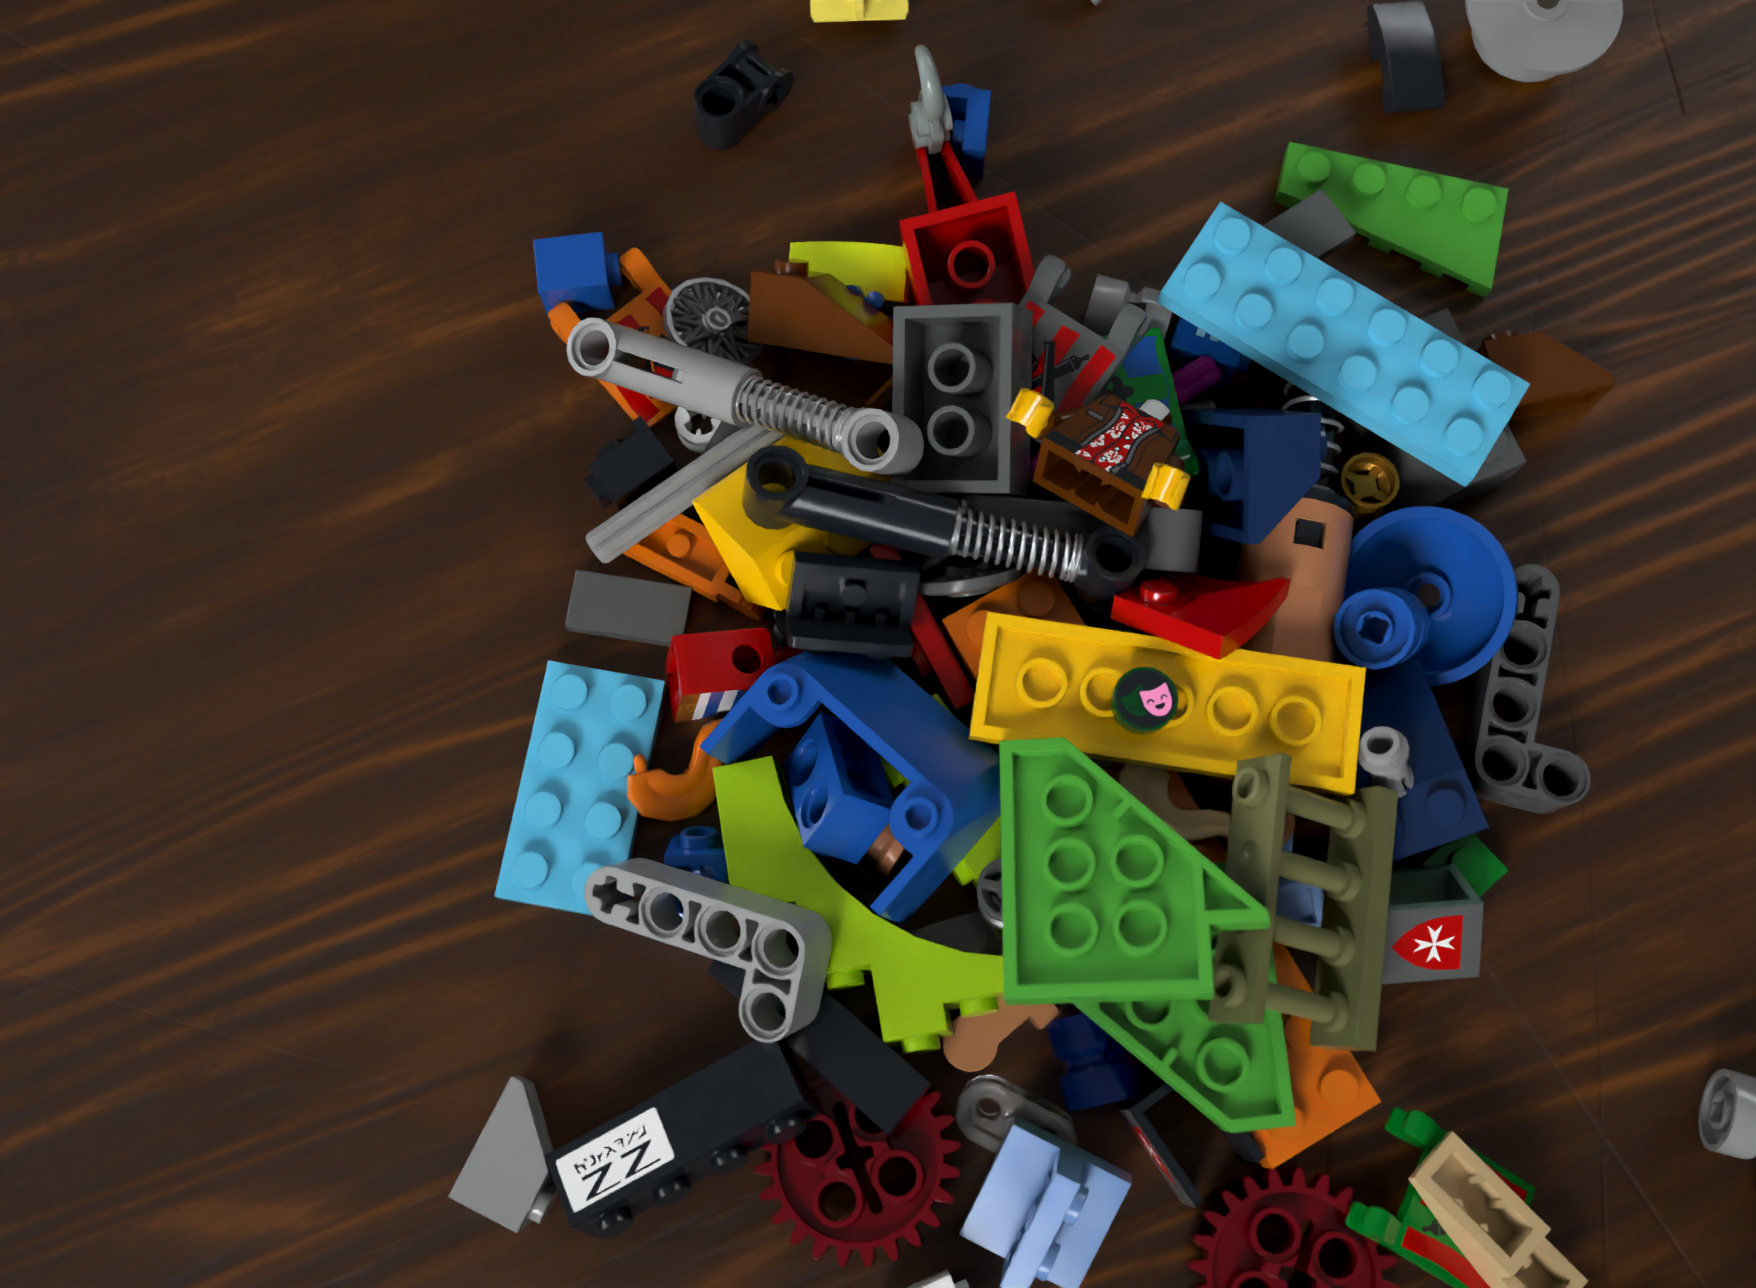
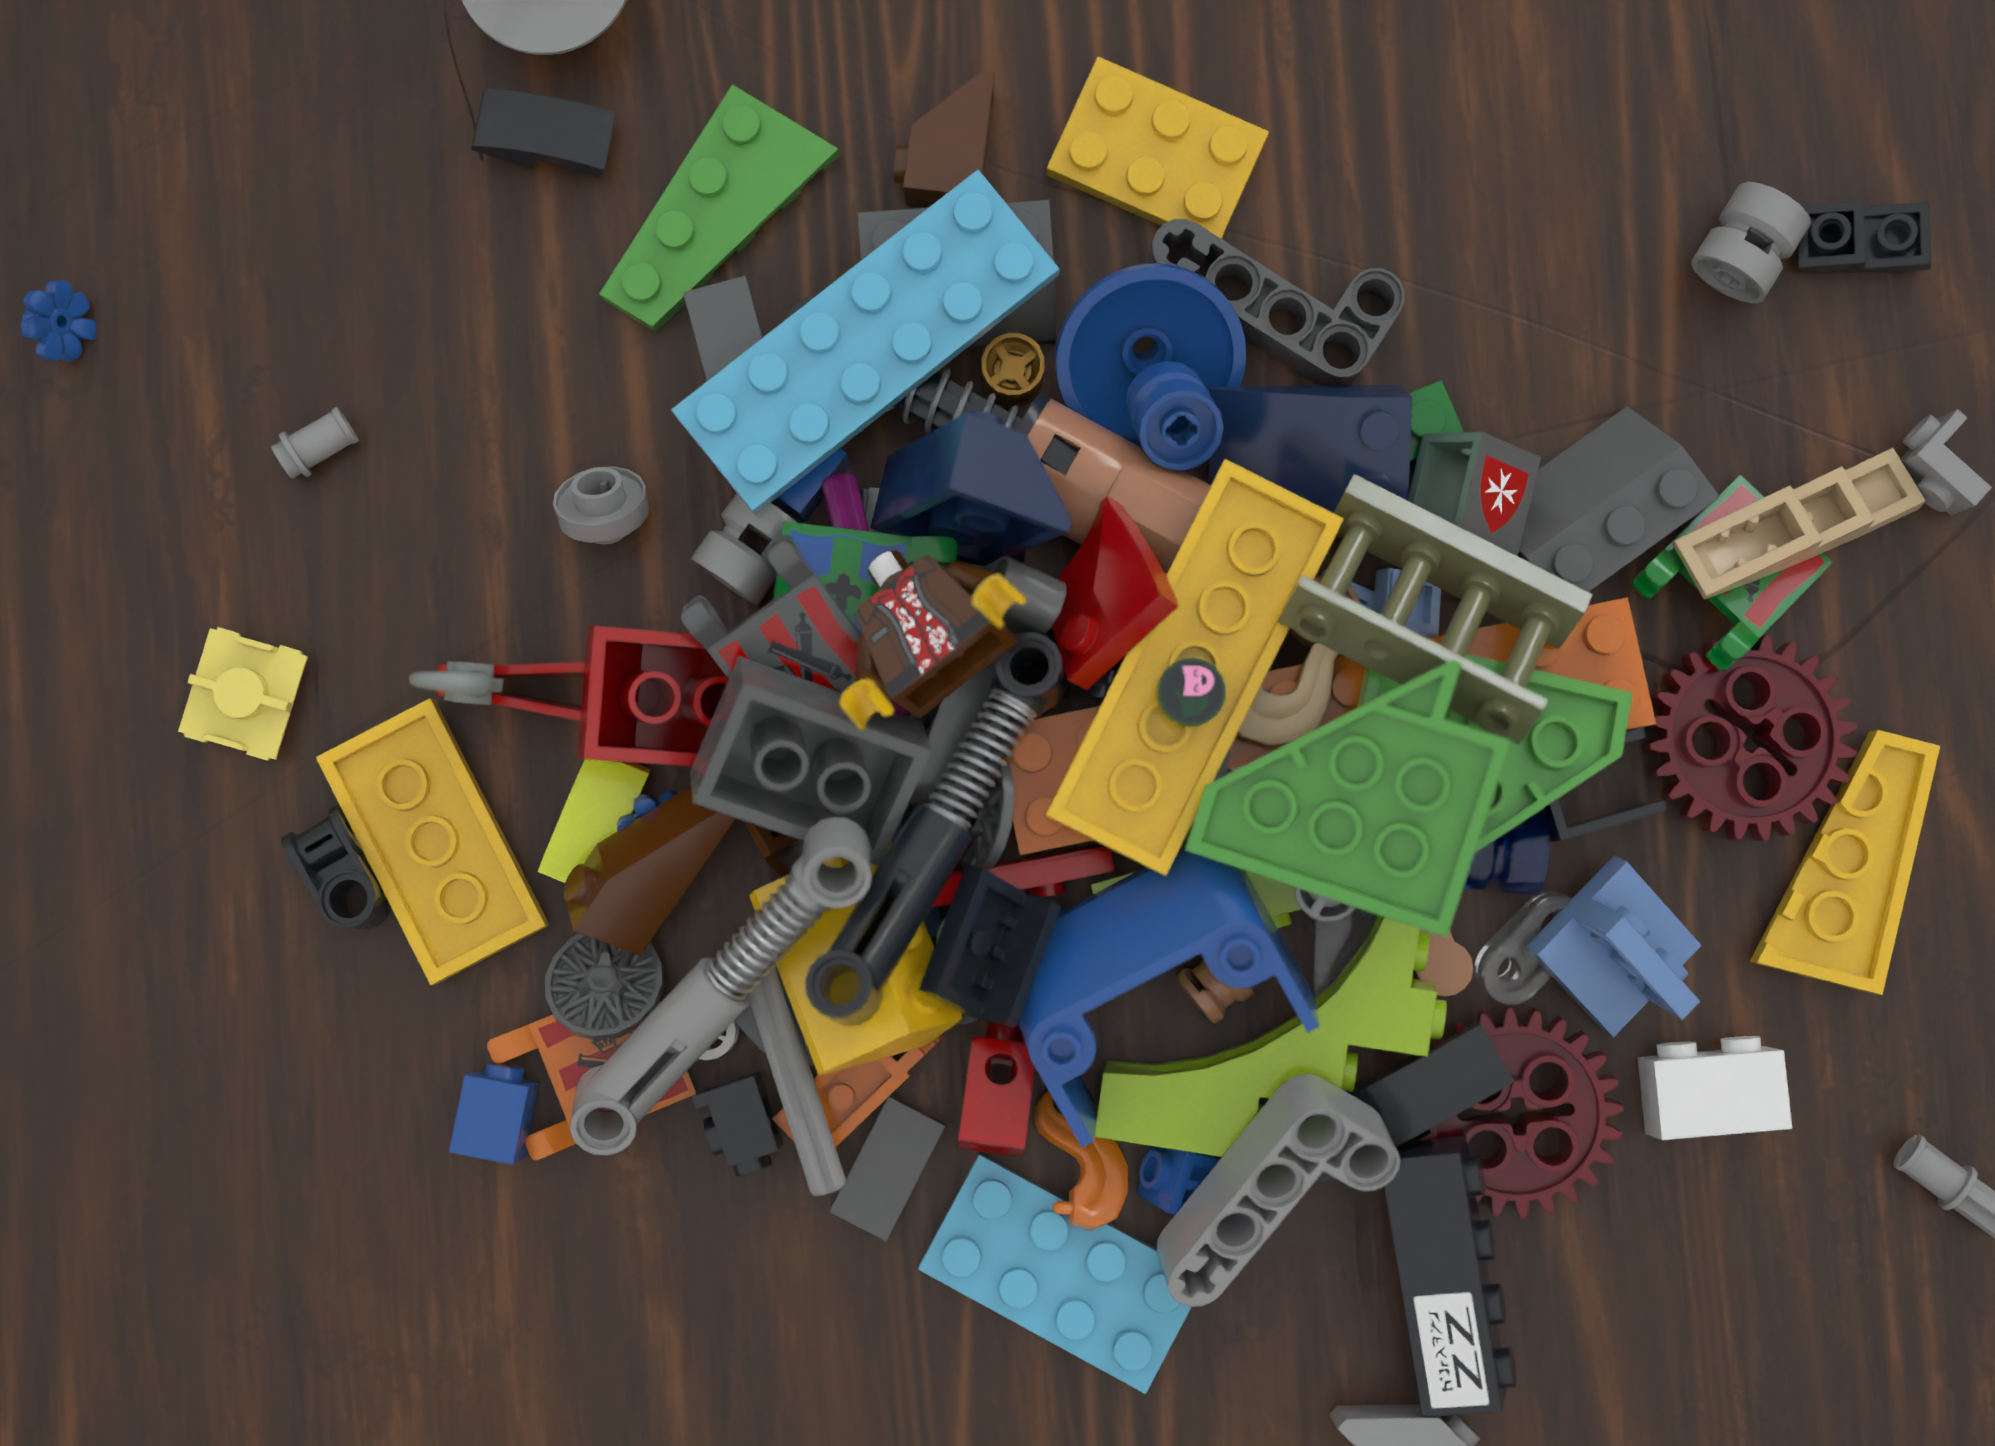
camera: 70 degrees left, 10 degrees up
(787, 158) = (432, 841): none -> yellow plate
(837, 790) = (1168, 1023): blue brick -> none
(970, 120) = (476, 634): blue bracket -> none
(1114, 195) = (601, 504): none -> light grey plate
(1385, 756) = (1326, 463): light grey pin -> none
(1460, 1065) = (1611, 500): none -> dark grey slope
(1607, 552) = (1155, 150): none -> yellow plate

